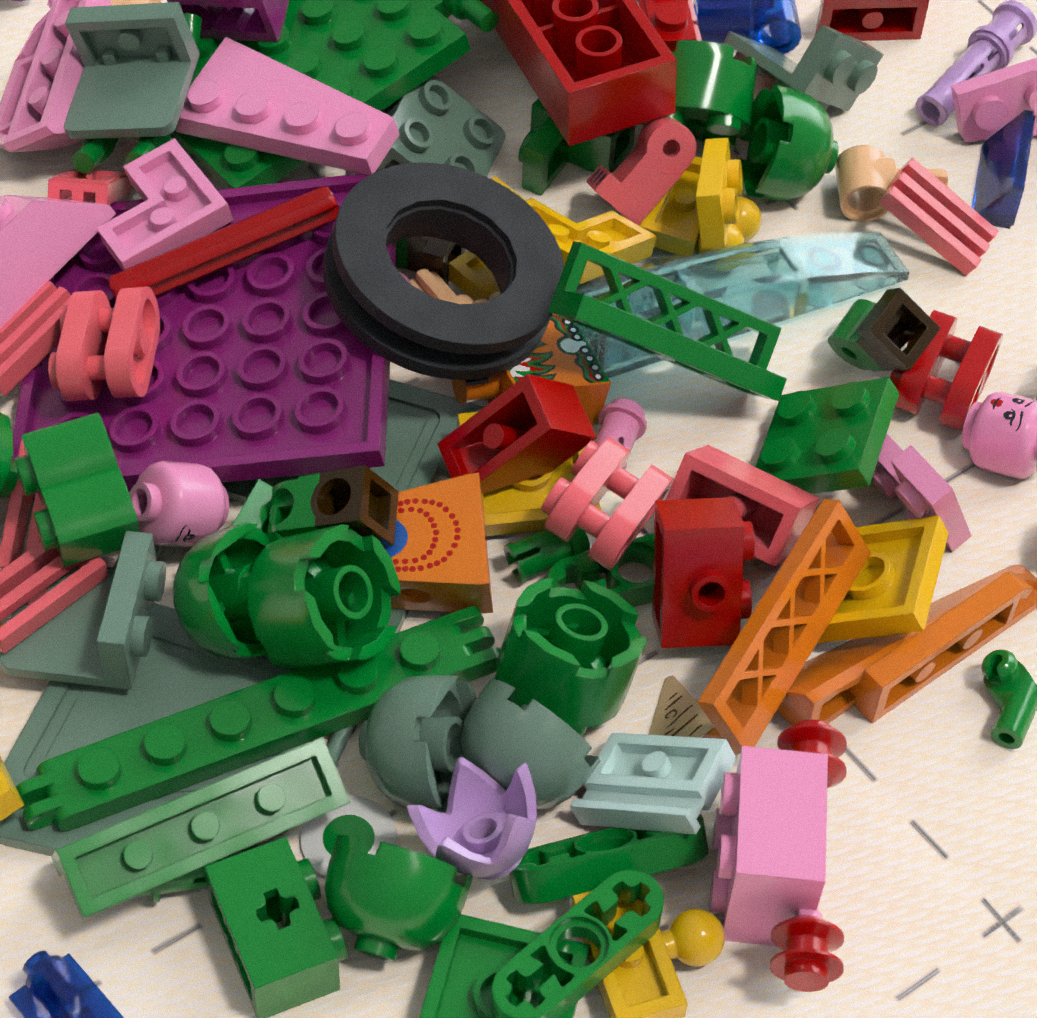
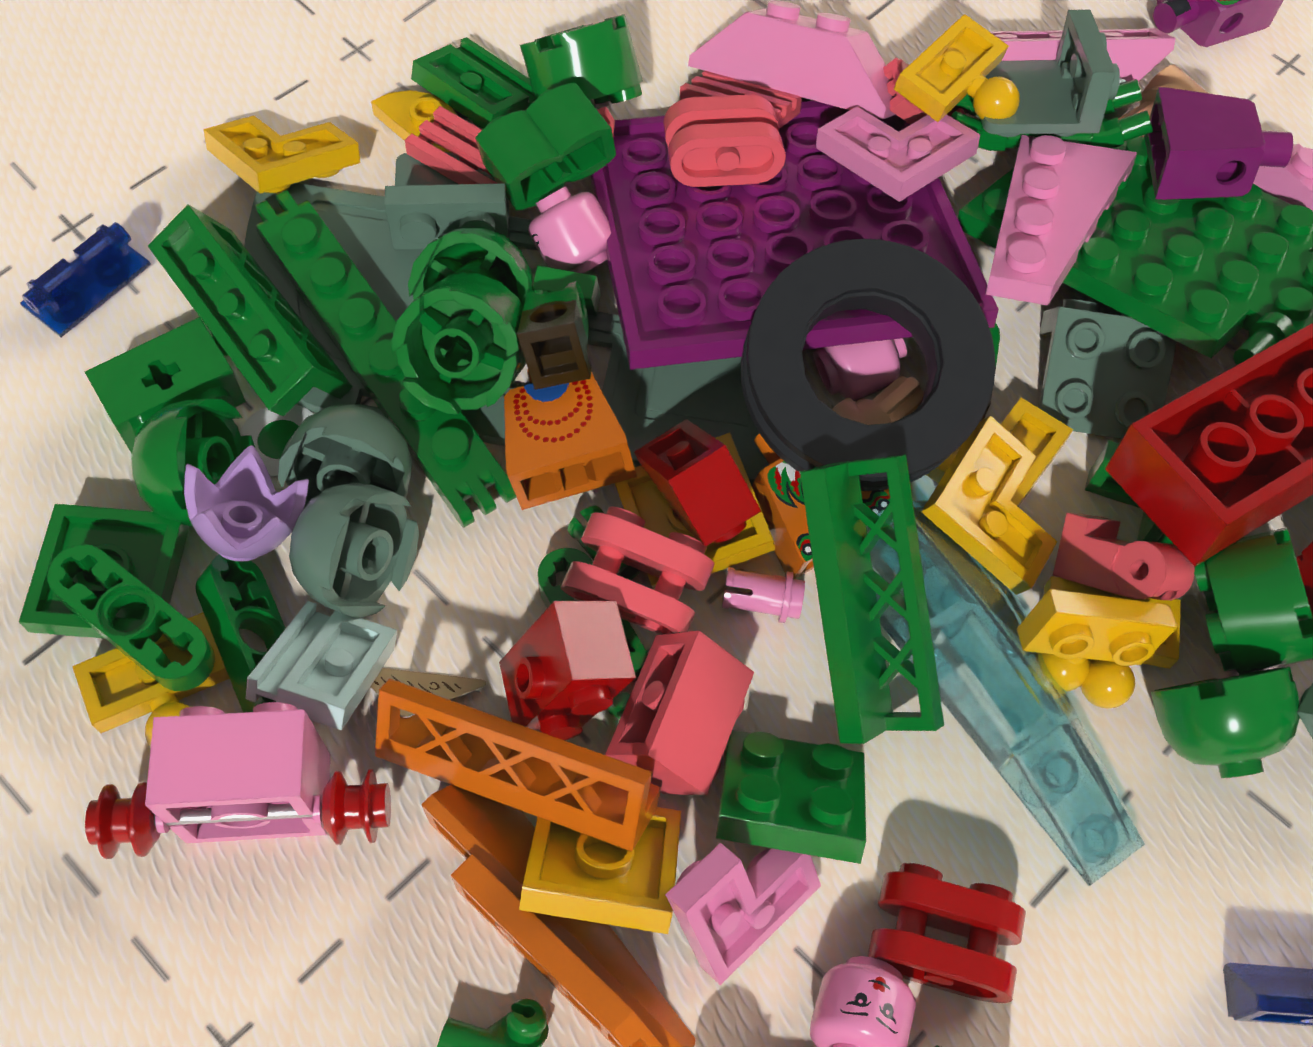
camera: 80 degrees right, 10 degrees up
(97, 138) = (958, 67): none -> yellow plate
(230, 244) = (856, 194): red axle -> none
(571, 652) = (489, 572): green brick -> none
(863, 179) = (1223, 827): light nougat axle -> none
(875, 333) = (955, 837): dark brown leg -> none
(941, 213) = (1215, 919): coral tile -> none

